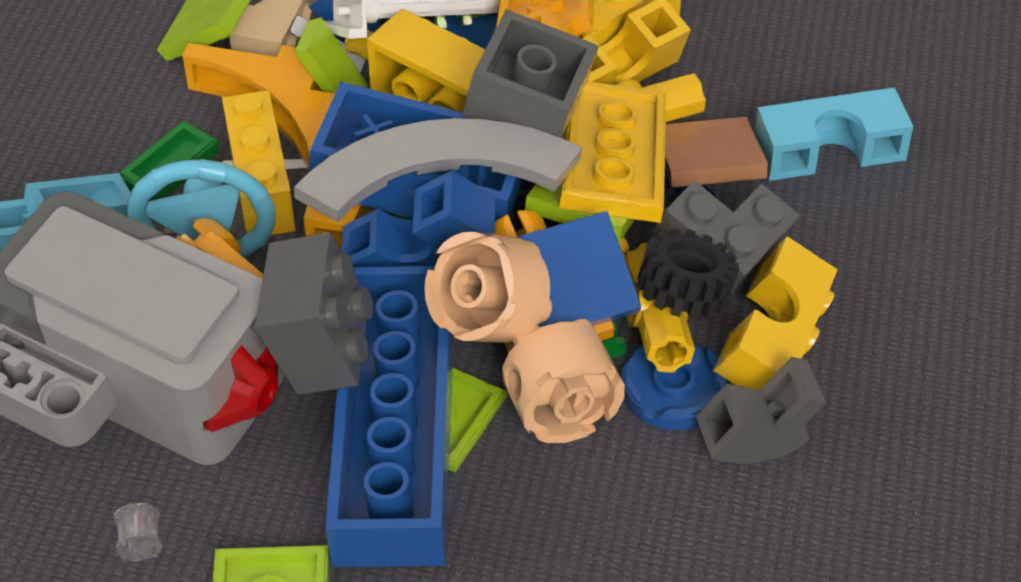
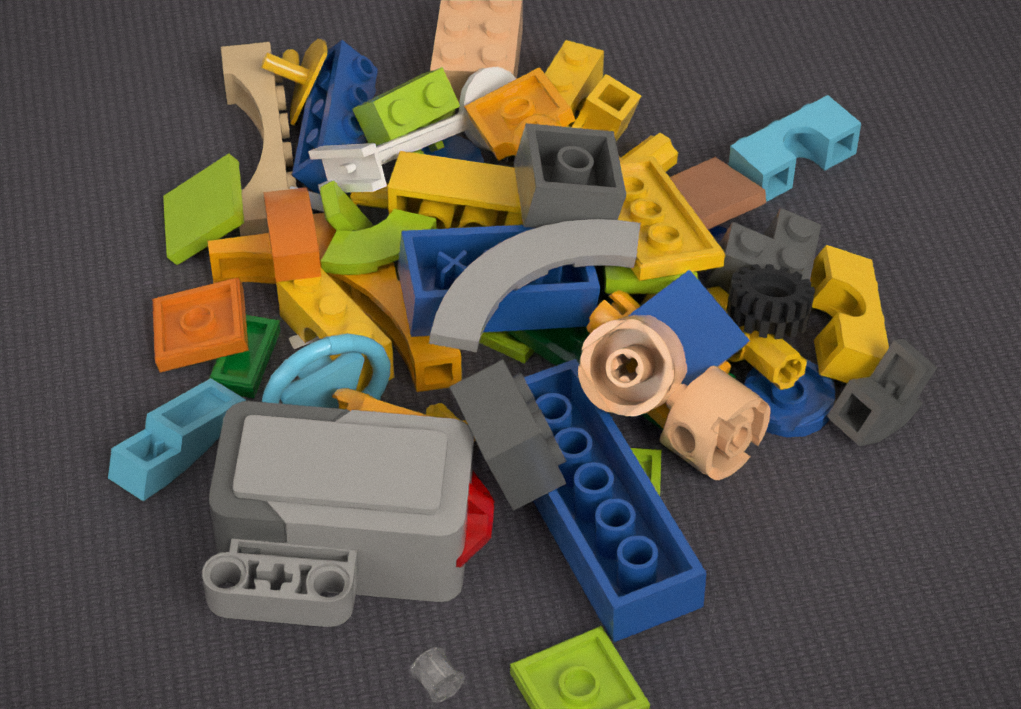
camera: 25 degrees left, 0 degrees up
(141, 120) = (199, 325): none -> orange tile
(256, 58) = (292, 234): none -> orange slope
(311, 93) = (371, 247): none -> lime tile
(440, 211) = (559, 324): blue arch -> none

